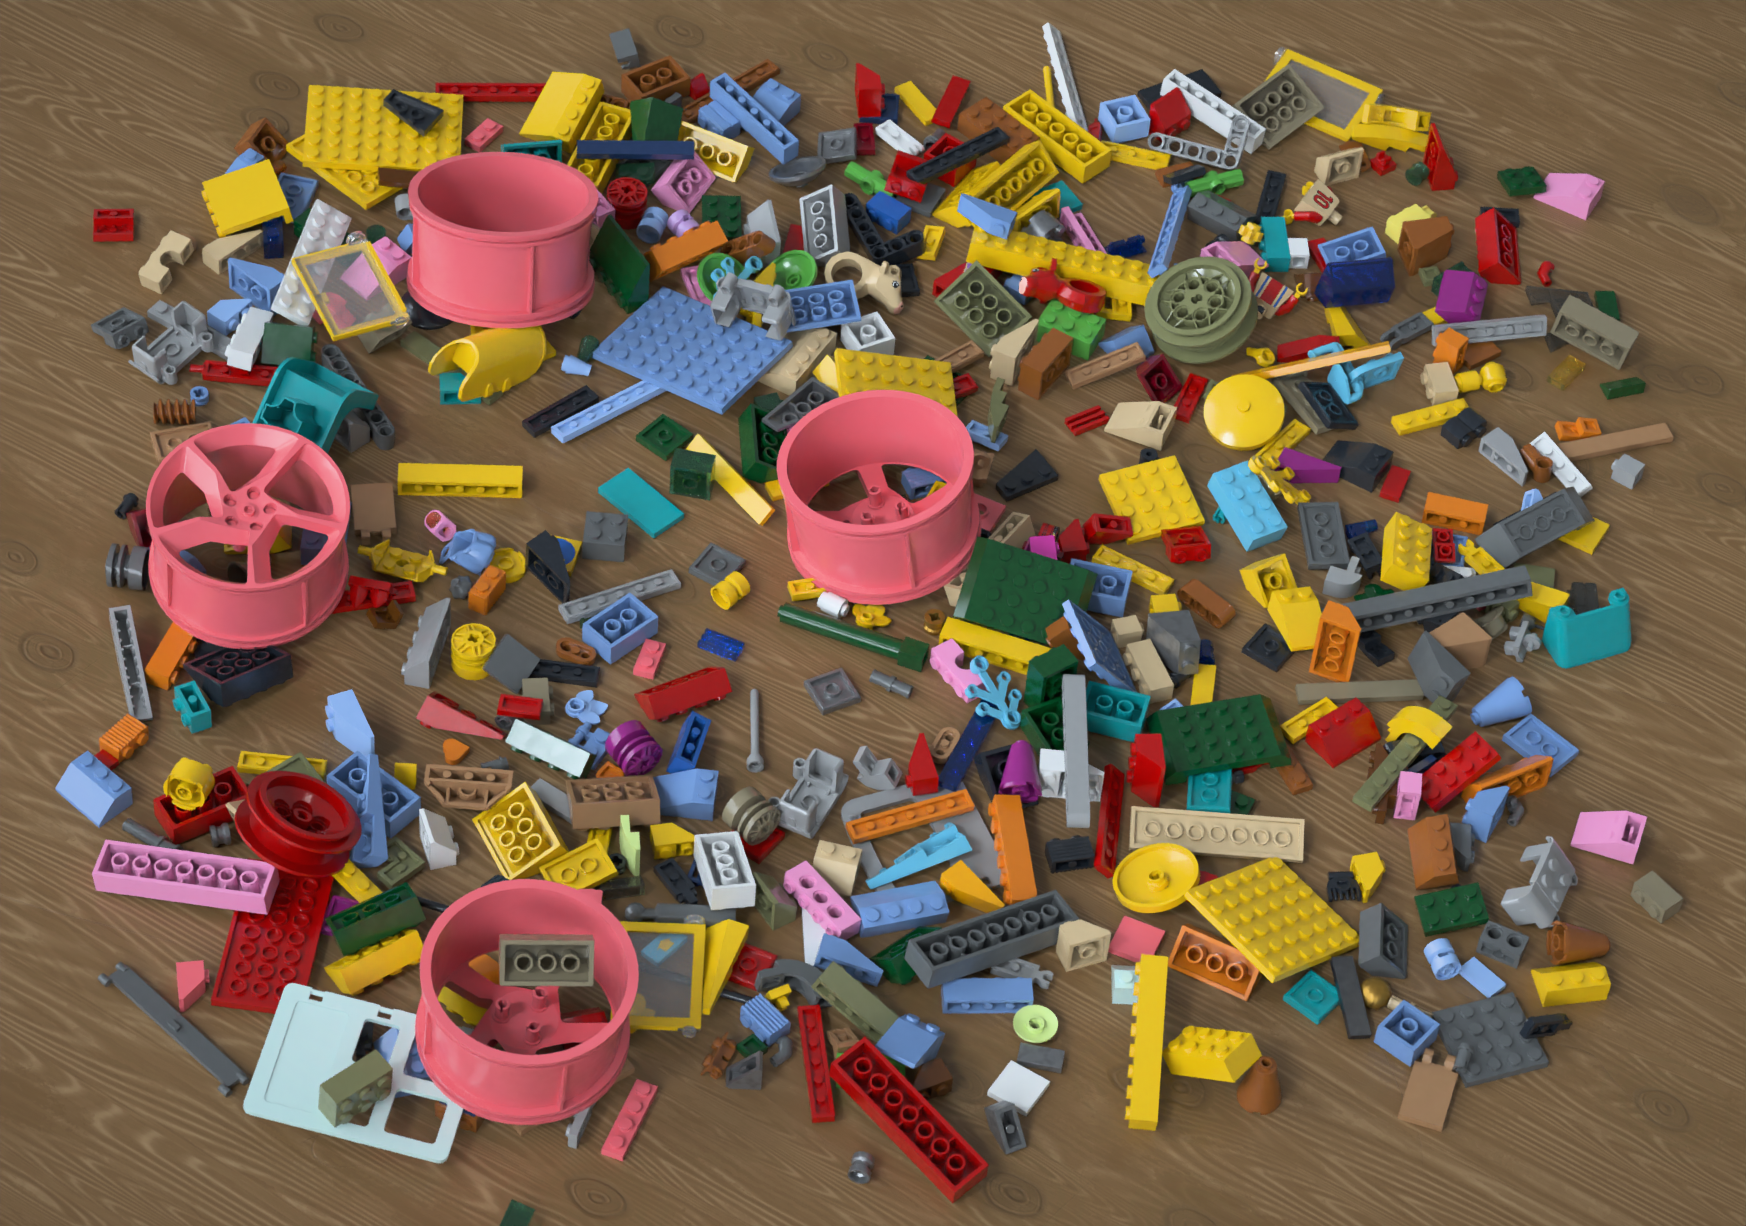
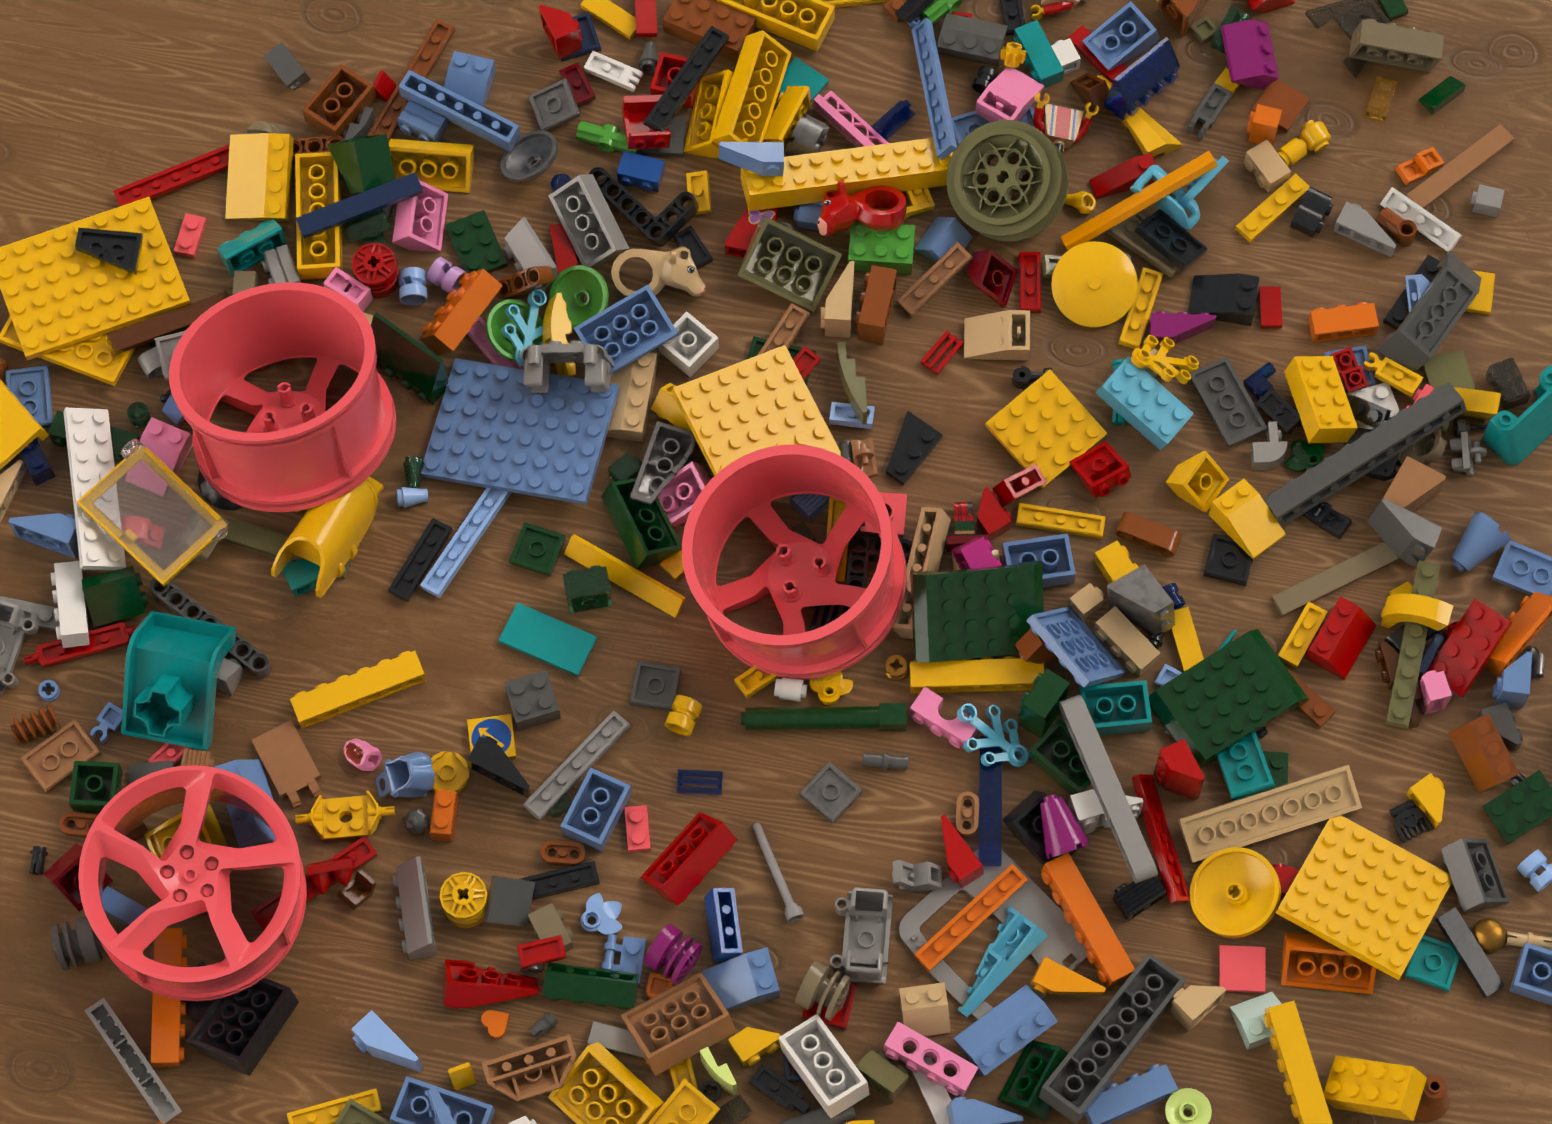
camera: 15 degrees left, 20 degrees up
(192, 706) = (213, 1081): teal brick -> none
(227, 314) = (34, 577): light blue slope -> none
(1021, 968) = (1153, 1053): light grey plate -> none
(1335, 643) = (1301, 546): orange slope -> none
(1496, 328) = (1293, 80): light grey plate -> none

